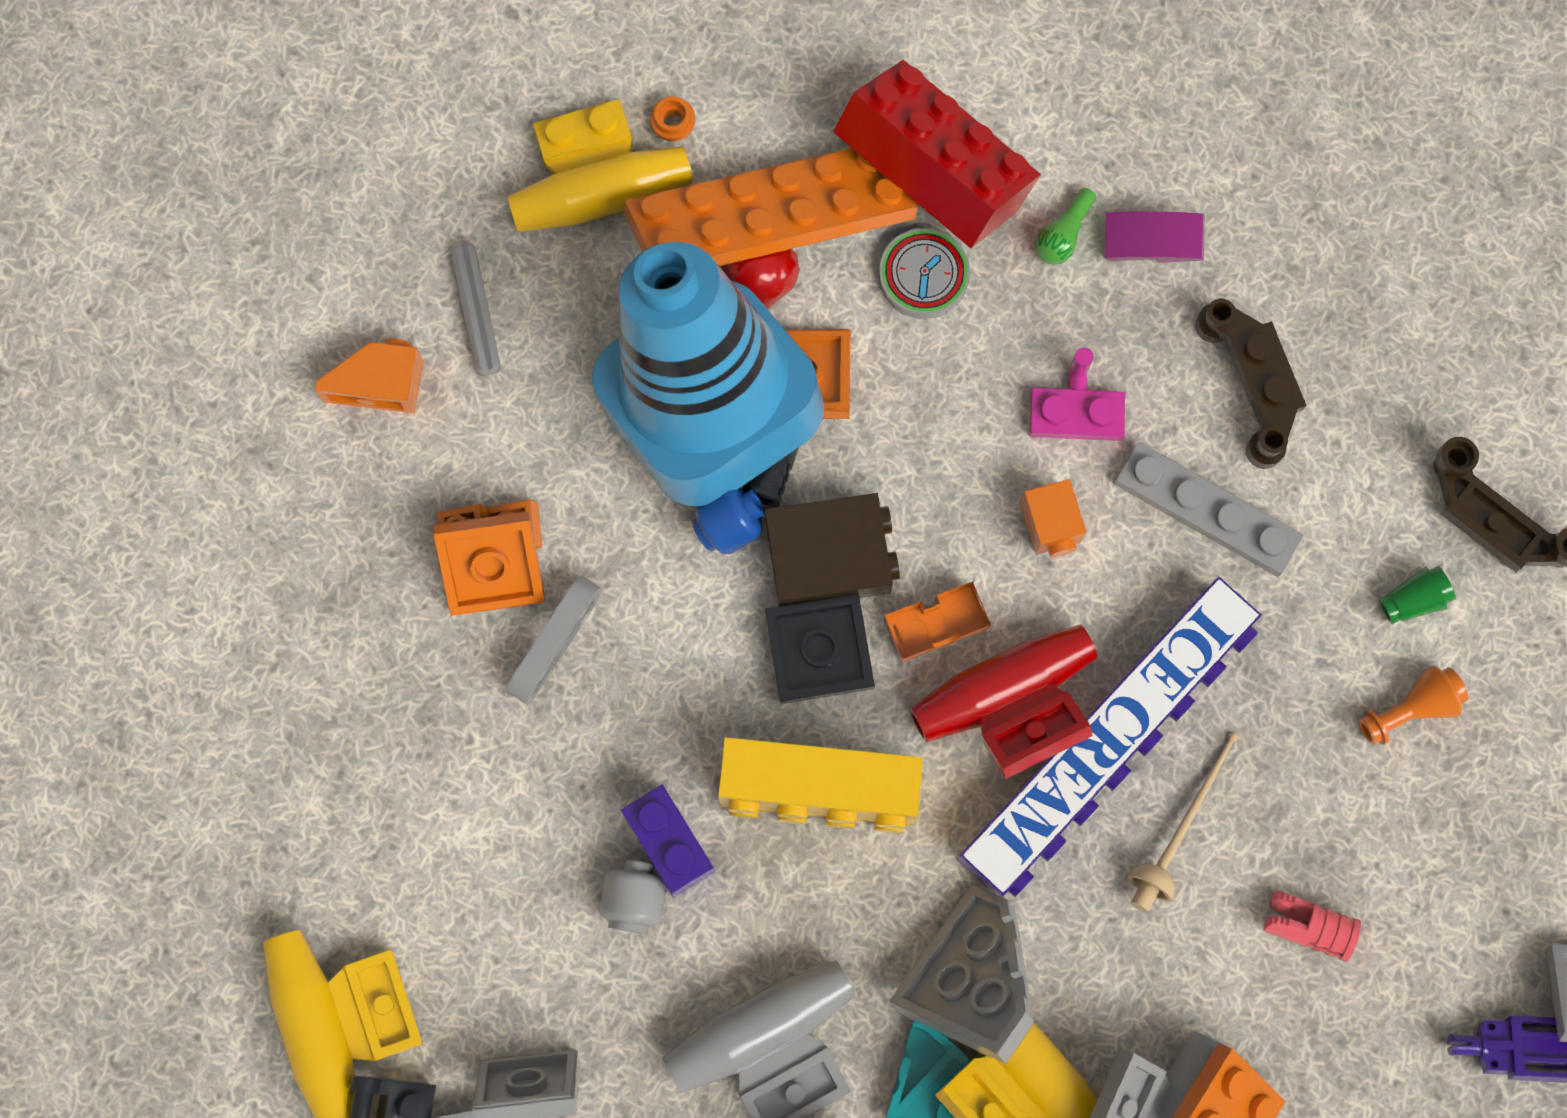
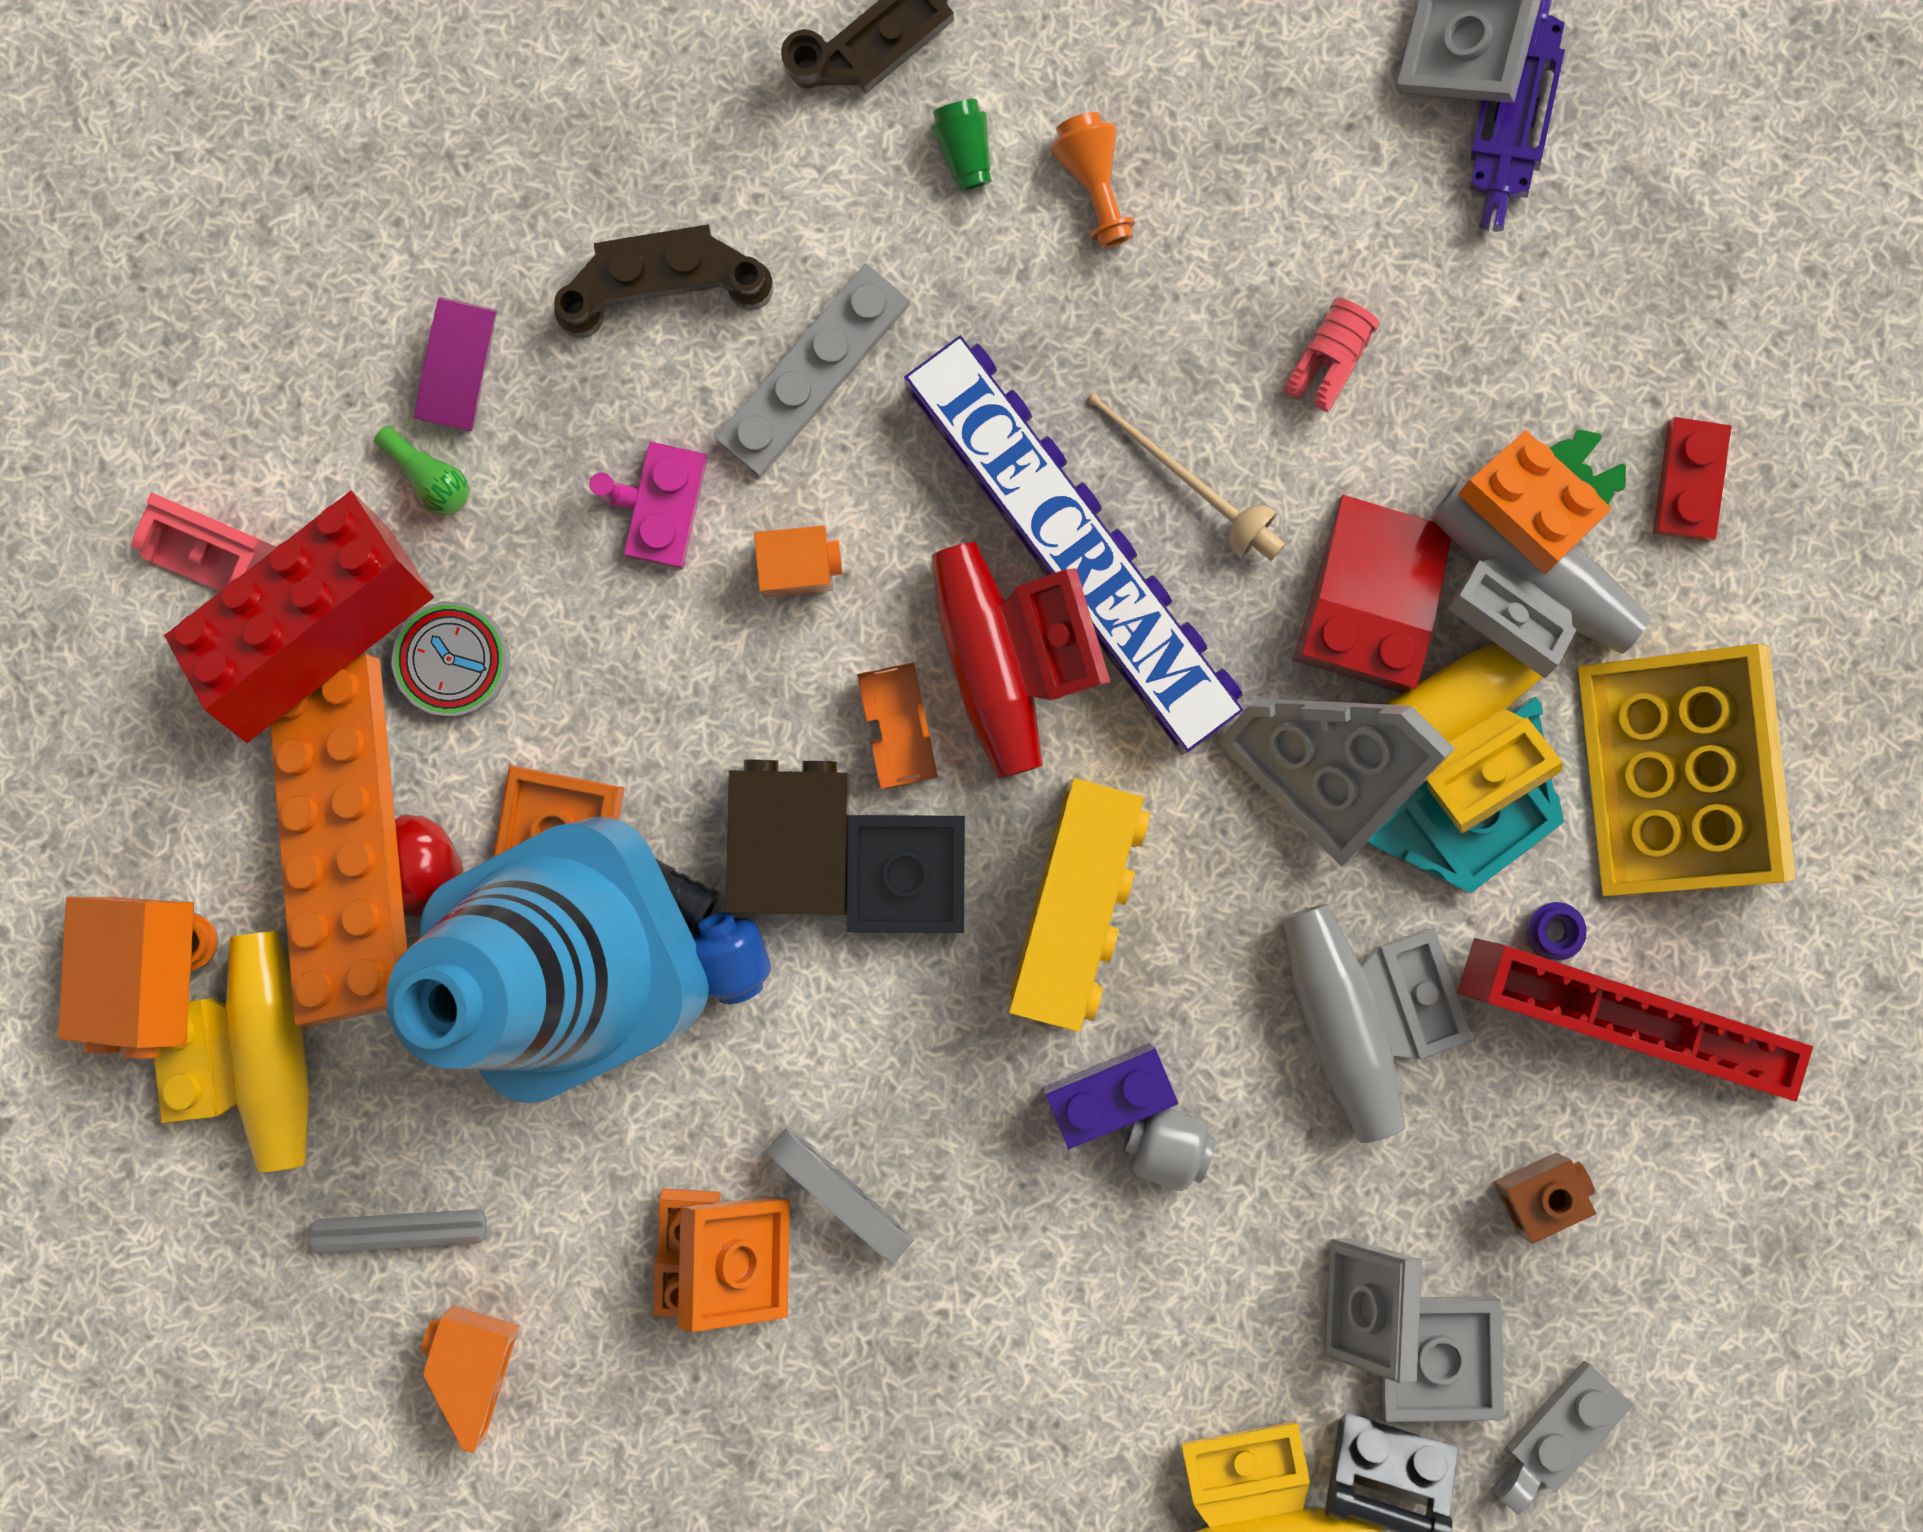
camera: 85 degrees left, 10 degrees up
(642, 76) = (126, 974): none -> orange brick
(977, 70) = (195, 544): none -> coral hinge
(1119, 995) = (1375, 596): none -> red slope

